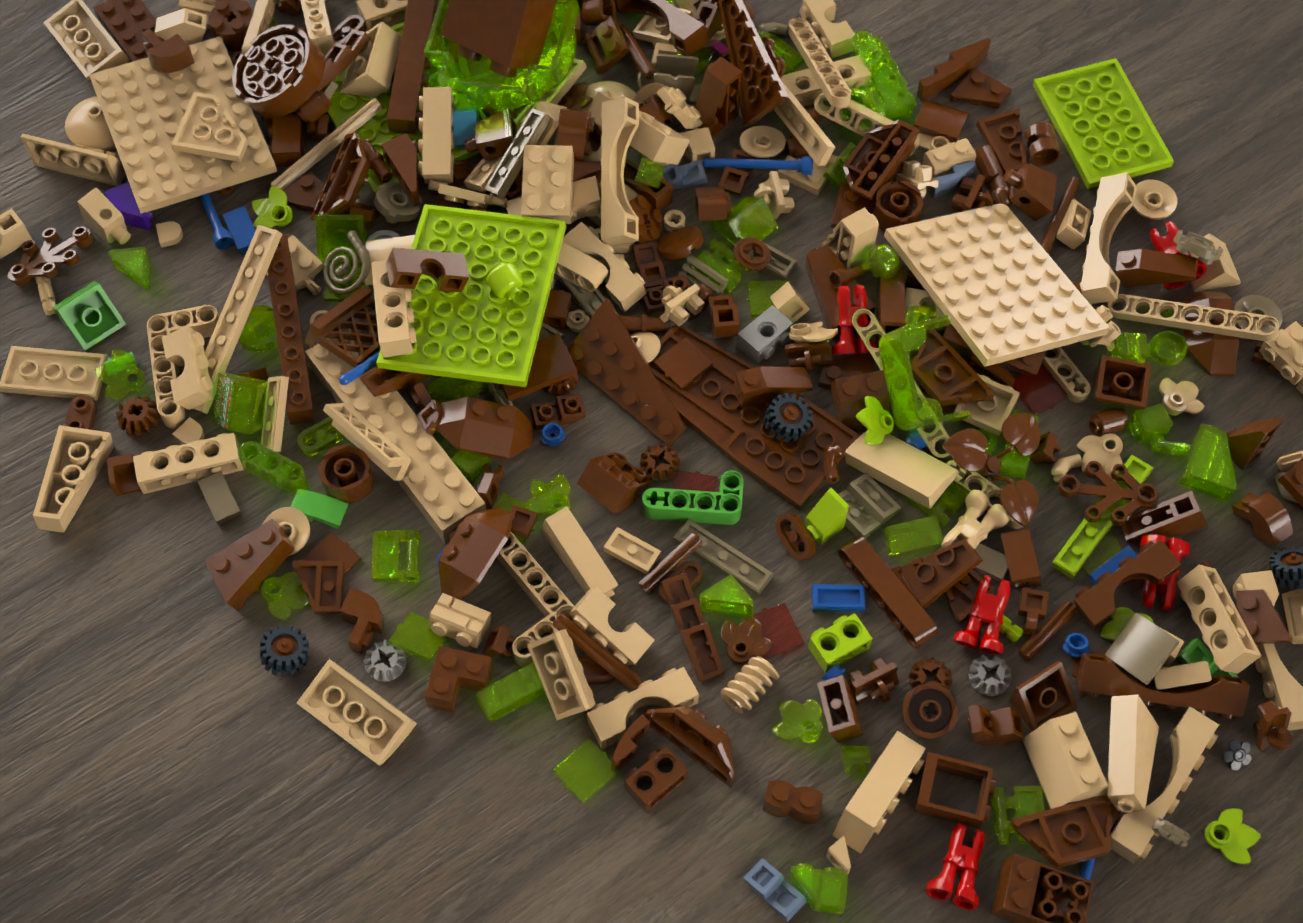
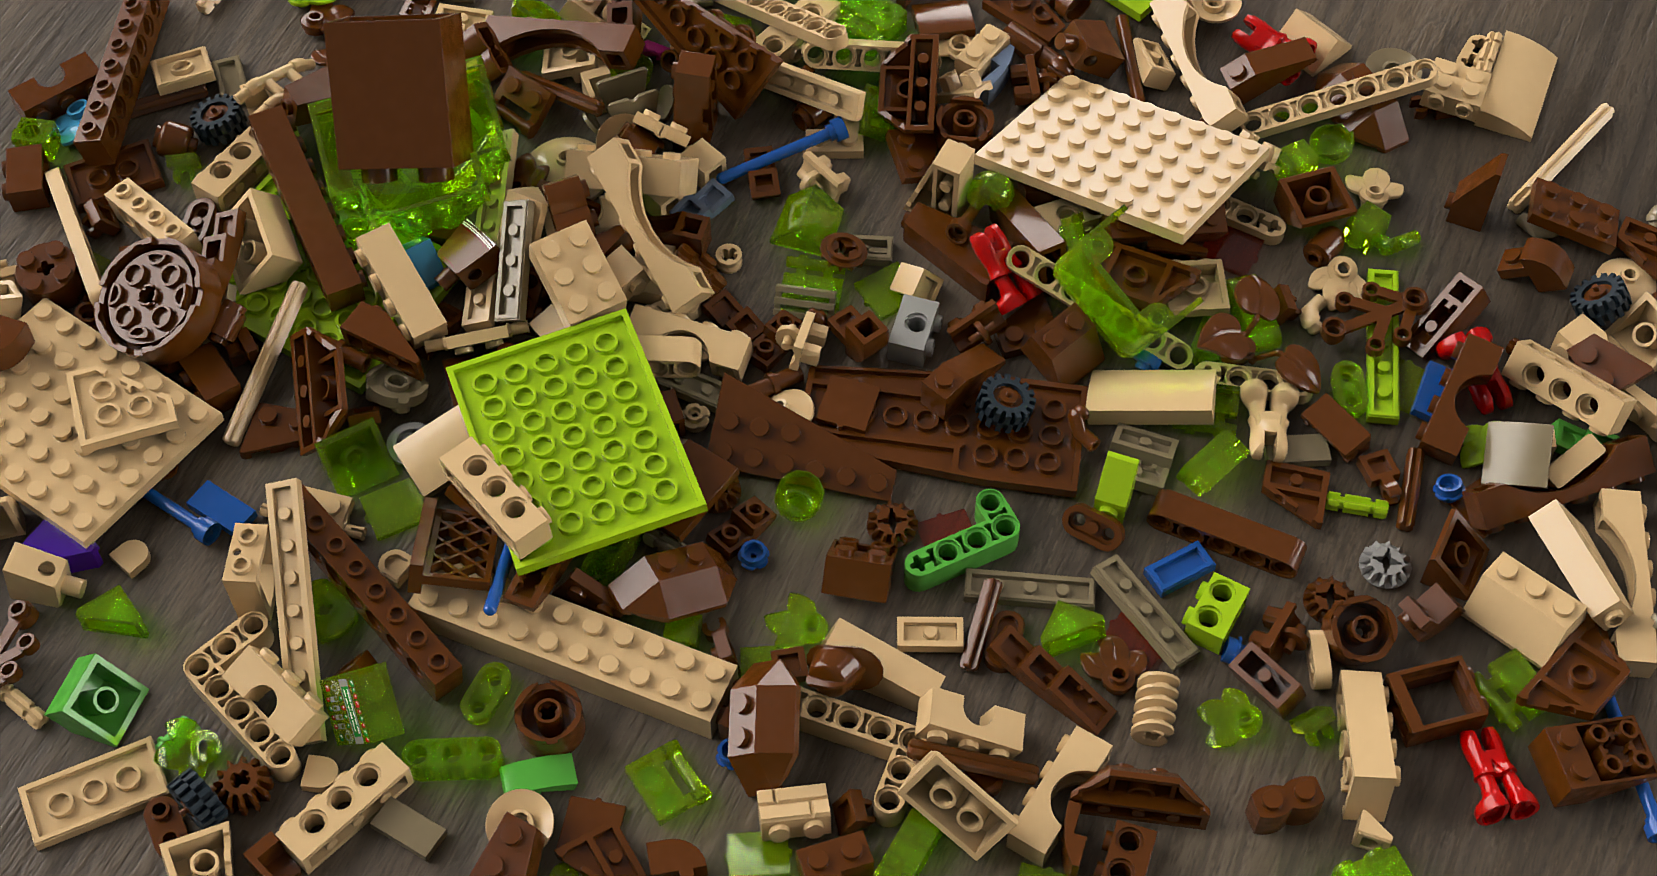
camera: 30 degrees left, 5 degrees down
(102, 409) = (197, 799): none -> black wheel
(213, 275) = (250, 574): none -> tan window
(271, 208) = (242, 468): lime plate -> none
(274, 413) = (417, 693): tan tile -> none
(343, 269) = (383, 492): dark tan piece -> none
(369, 439) = (562, 664): tan fence -> none
(429, 416) = (611, 602): reddish brown tile -> none
(446, 268) = (494, 438): reddish brown arch -> none
(504, 280) = (608, 403): lime head -> none
(547, 542) = (841, 669): none -> reddish brown piece
(607, 410) = (799, 496): none -> clear neon green hair
(650, 172) = (679, 213): clear neon green plate -> none
(680, 242) = (755, 276): reddish brown tile -> none
(712, 204) = (762, 218): reddish brown brick -> none
(762, 141) = (769, 127): tan dish -> none
(790, 615) = (1145, 612): none -> dark tan tile
(810, 332) = (965, 302): tan plate -> none
(876, 420) = (1100, 359): lime plate -> none
(890, 715) = (1318, 660): none -> tan beam
(935, 574) = (1268, 483): reddish brown wing -> none
(986, 609) = (1342, 497): red piece -> none
(1051, 536) = (1352, 391): none -> clear neon green plate
(1197, 245) = (1290, 24): dark tan plate -> none
(1210, 464) = (1450, 239): clear neon green slope -> none

